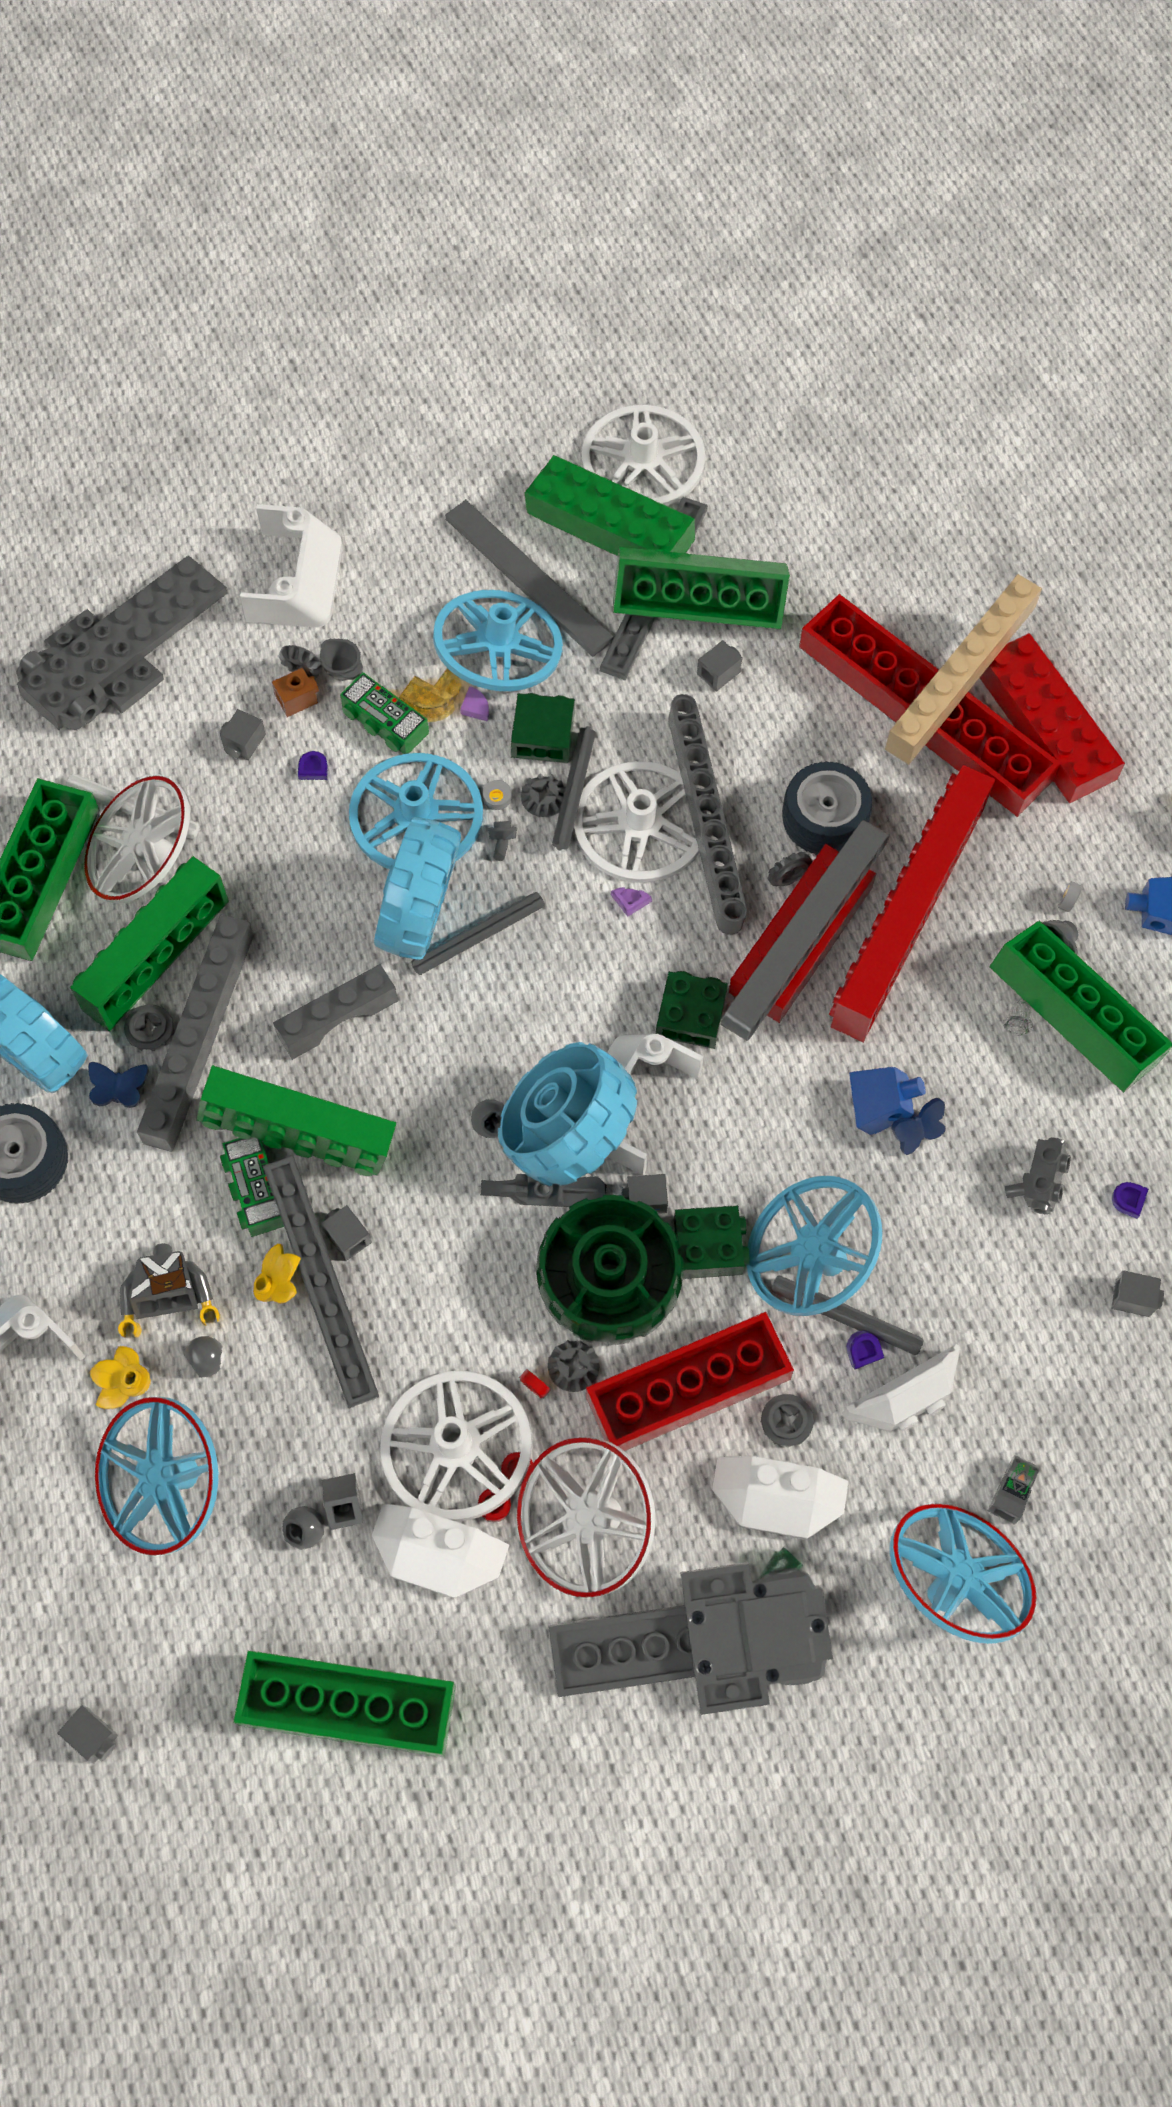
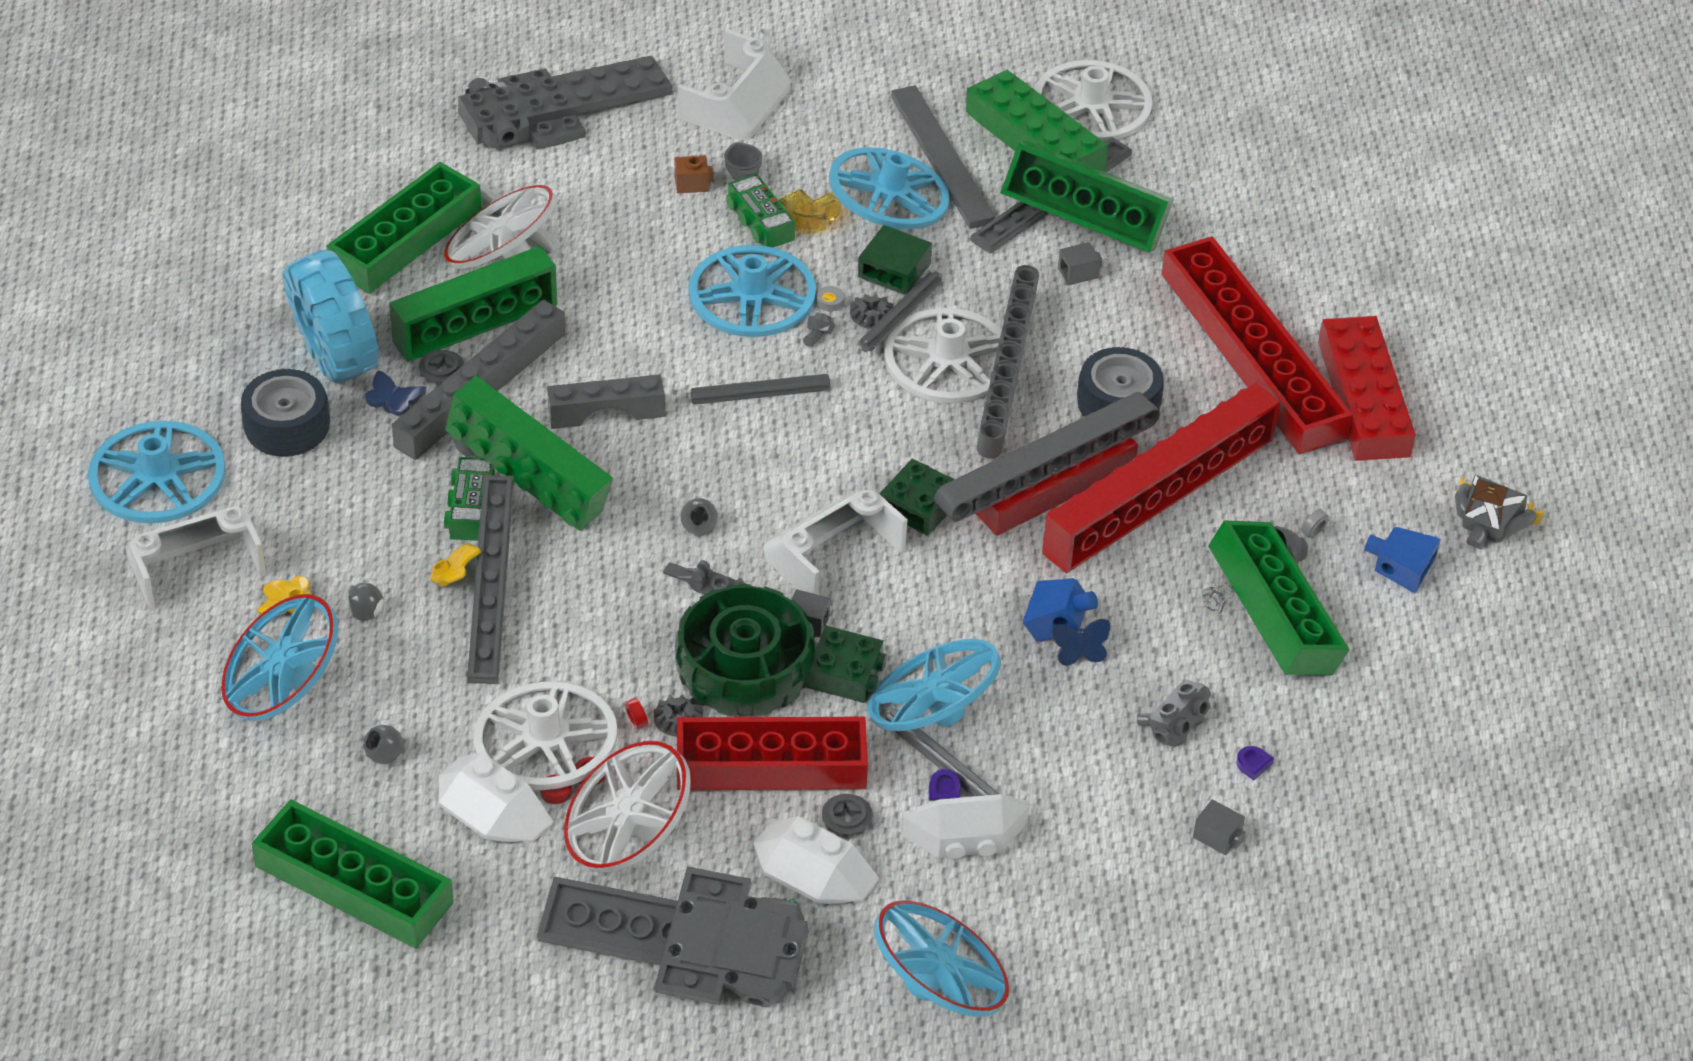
camera: 20 degrees right, 20 degrees down
(88, 1735) = (127, 823): dark grey brick -> none
(162, 1287) = (356, 540): dark grey torso -> none
(242, 735) = (630, 190): dark grey brick -> none
(298, 657) = (704, 143): dark grey gear -> none
(313, 766) = (679, 232): dark purple tile -> none
(342, 1501) = (425, 736): dark grey brick -> none
(346, 1232) = (531, 556): dark grey brick -> none
(416, 888) = (717, 321): medium azure wheel -> none
(475, 705) = (845, 231): medium lavender tile -> none
(568, 1114) = (763, 516): medium azure wheel -> none
(630, 899) = (909, 408): medium lavender tile -> none
(789, 869) = (1050, 421): dark grey gear -> none
(962, 669) = (1293, 315): tan brick -> none
(1014, 1490) = (1026, 932): leg -> none

